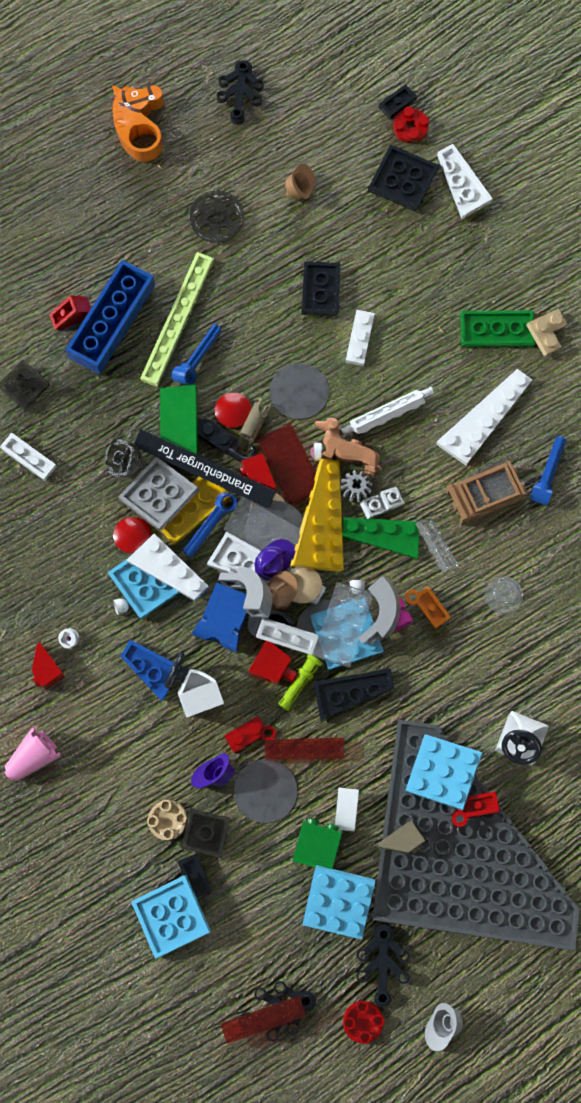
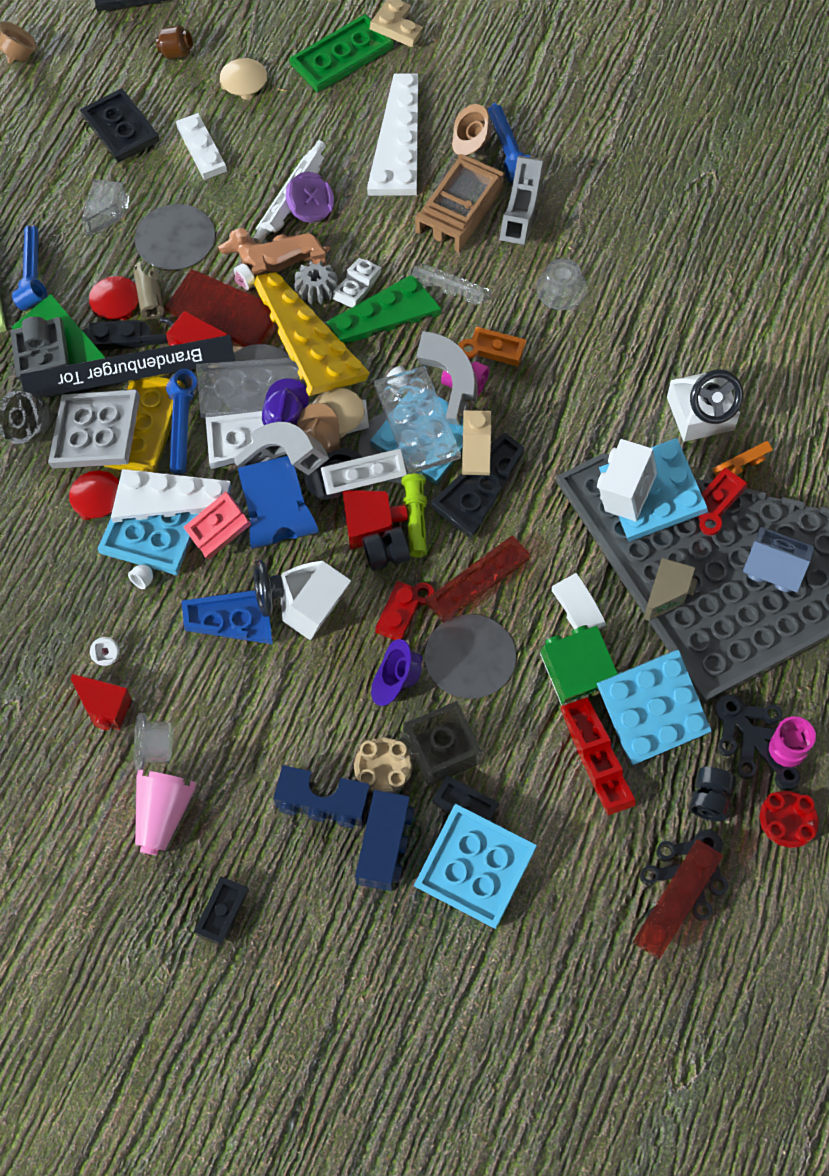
camera: 35 degrees left, 10 degrees down
(23, 837) = (221, 911): none -> black plate
(53, 714) = (152, 742): none -> clear piece
(131, 828) = (345, 806): none -> dark blue arch
(134, 864) = (384, 841): none -> dark blue brick
(164, 417) = (39, 345): none -> dark grey plate
(180, 609) = (217, 525): none -> coral plate
(258, 690) = (386, 548): none -> black wheel
(270, 341) = (104, 205): none -> clear slope
(287, 904) = (597, 756): none -> red slope
(330, 976) = (712, 794): none -> black wheel
(365, 666) = (476, 442): none -> tan slope
(395, 424) = (309, 197): none -> medium lavender tile
(395, 983) = (792, 741): none -> dark pink wheel
(396, 250) = (174, 42): none -> reddish brown head
(422, 305) = (243, 77): none -> tan dish
(425, 760) = (627, 479): none -> white brick
(481, 870) = (778, 560): none -> sand blue slope
(508, 790) = (752, 456): none -> orange hinge
(521, 523) = (523, 200): none -> light grey arch
(530, 448) = (471, 130): none -> piece

